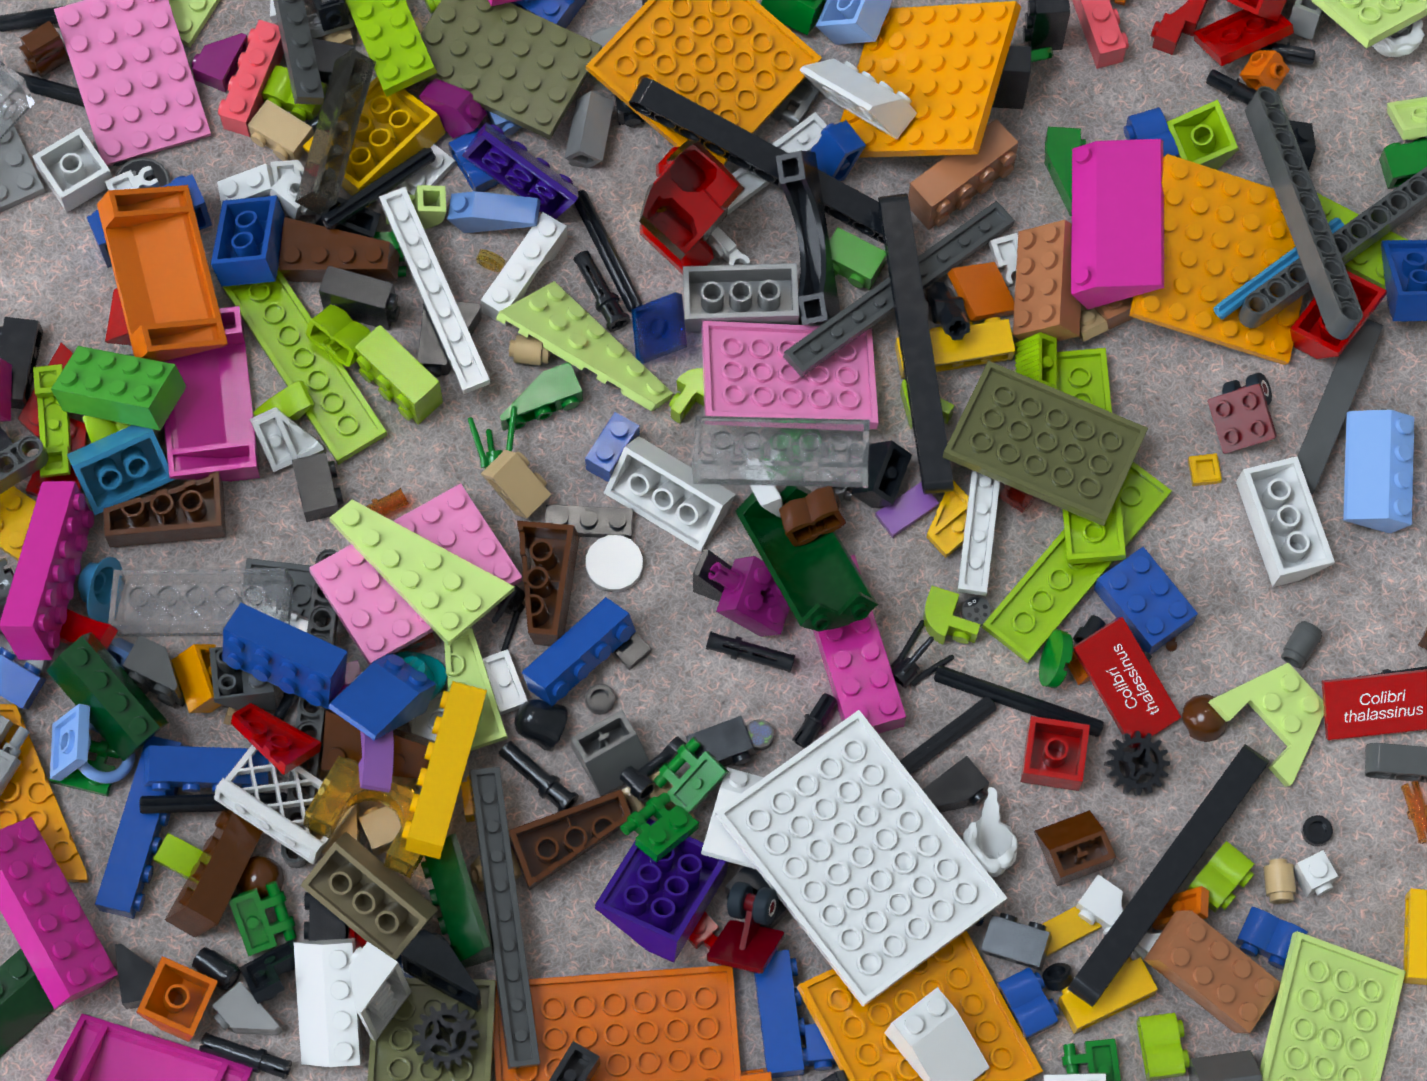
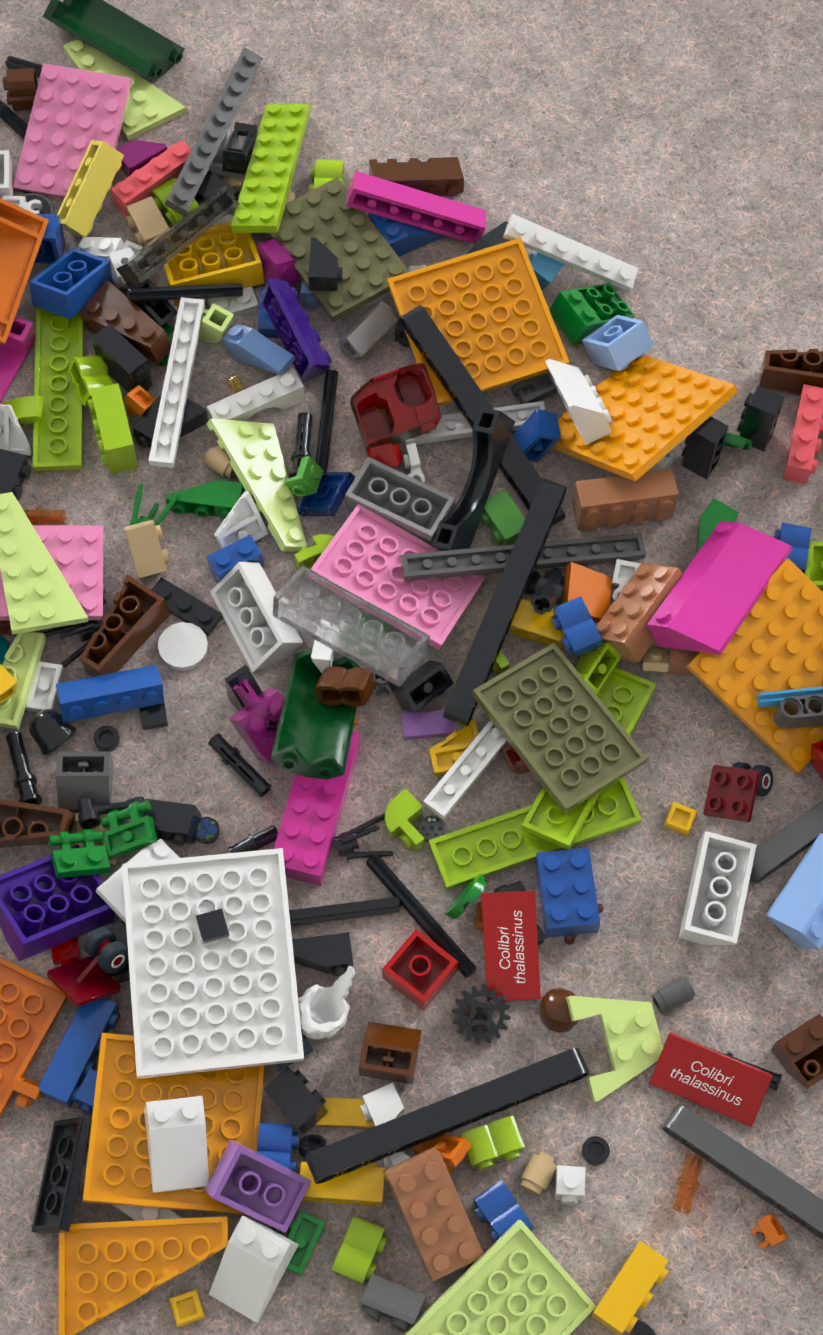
camera: 30 degrees right, 5 degrees down
(197, 124) = (89, 188): none -> light yellow brick
(405, 330) = (138, 401): none -> orange tile
(511, 87) = (323, 268): none -> black slope
(594, 406) = (241, 522): none -> white wing
(632, 321) = (307, 478): none -> bright green bracket
(843, 822) = (212, 925): none -> black tile
(1001, 333) = (576, 626): none -> blue brick
(1036, 1041) = (257, 1186): none -> medium lavender slope

